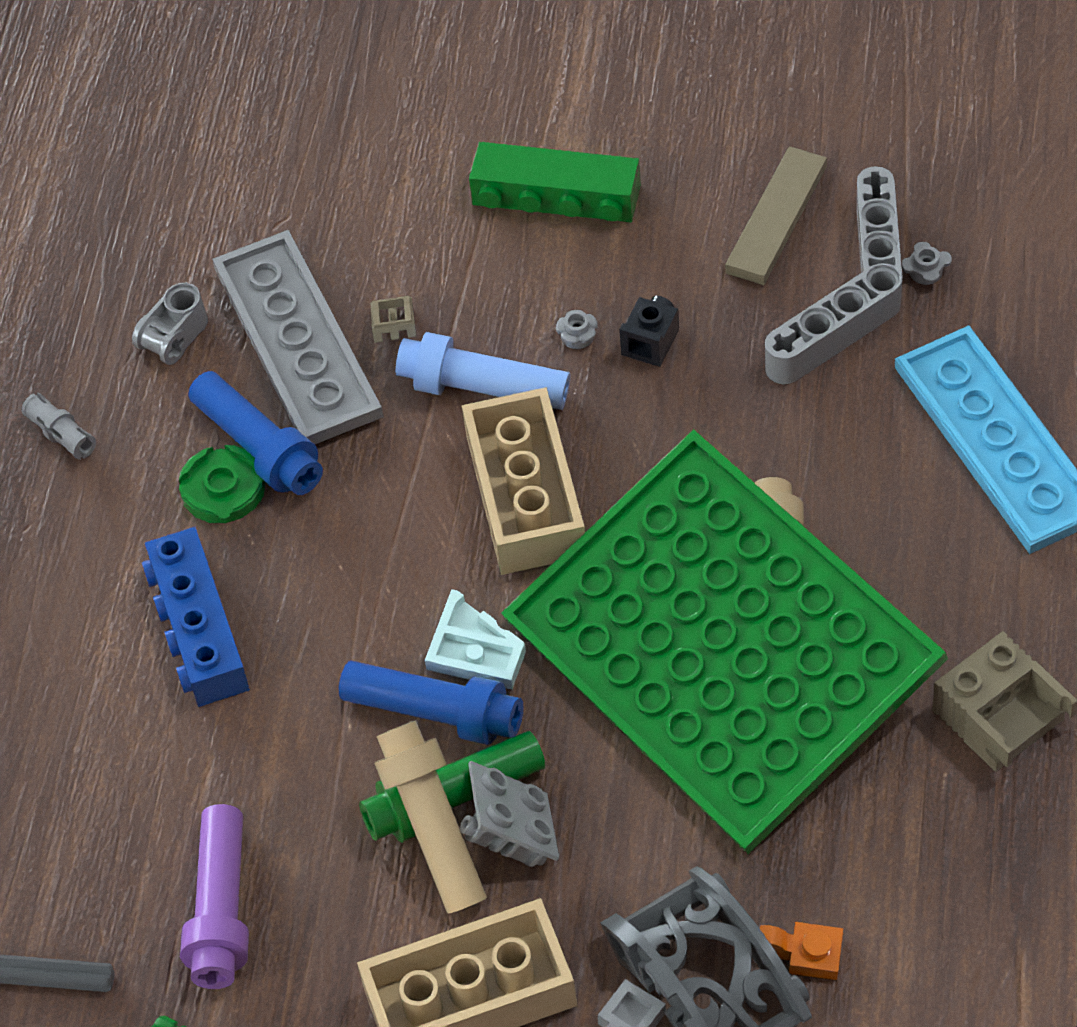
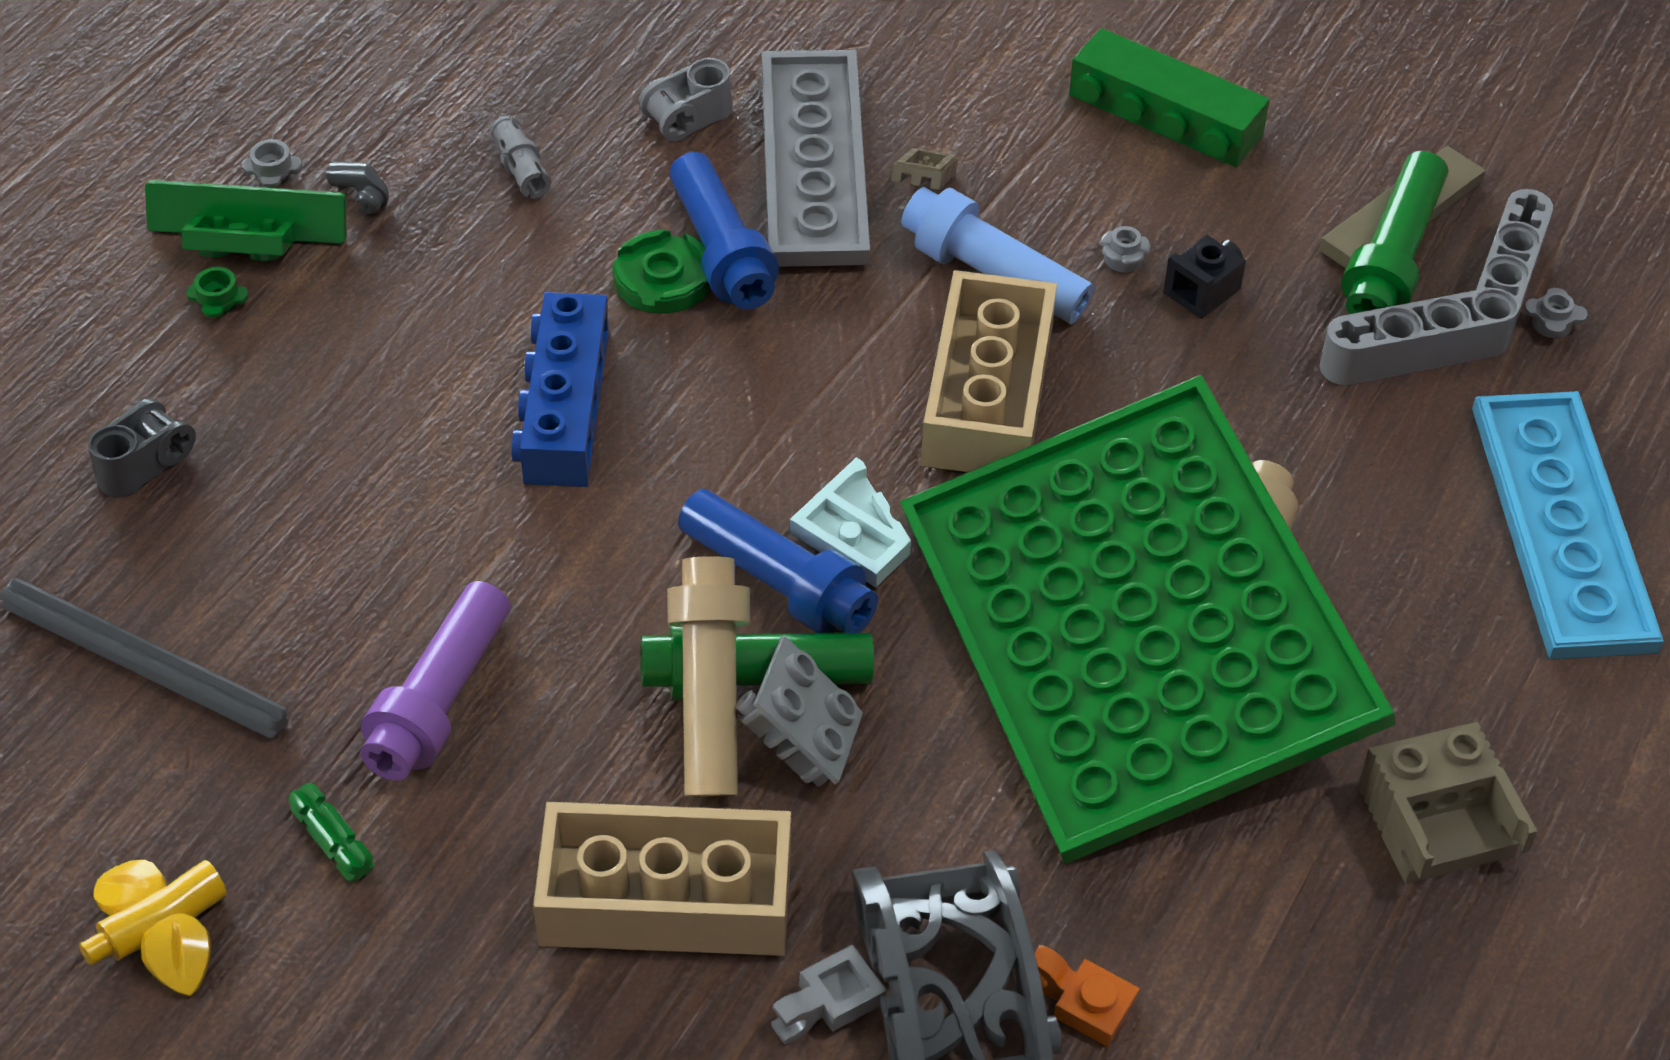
camera: 15 degrees right, 5 degrees down
(786, 282) = (1384, 270): none -> green piece

